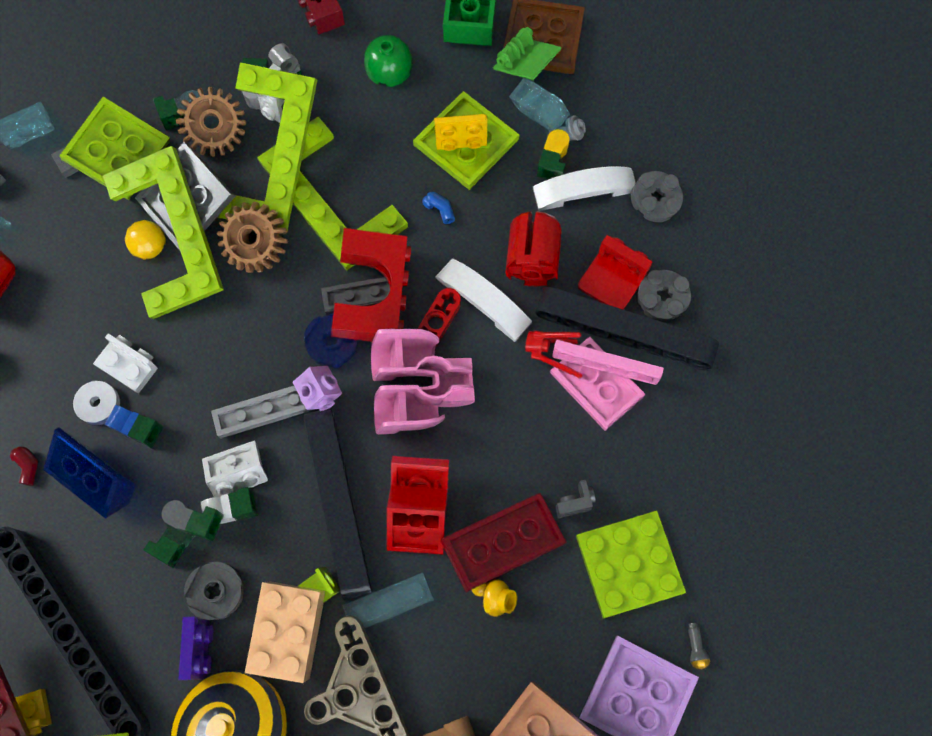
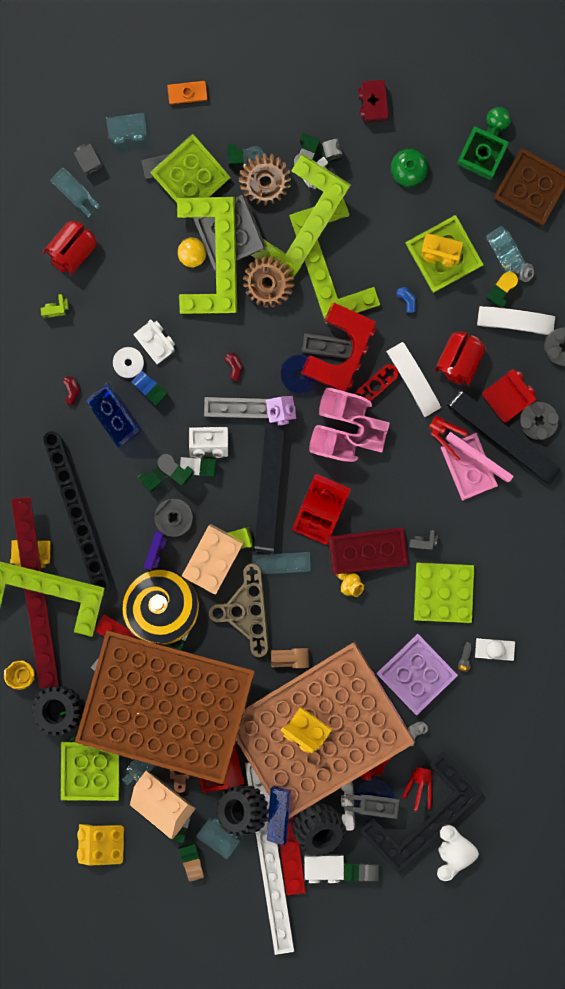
camera: 20 degrees right, 15 degrees up
(91, 66) = (187, 92): none -> orange plate
(243, 357) = (236, 365): none -> dark red arm
(525, 56) = (510, 208): bright green hinge -> none
(733, 620) = (494, 649): none -> white tile

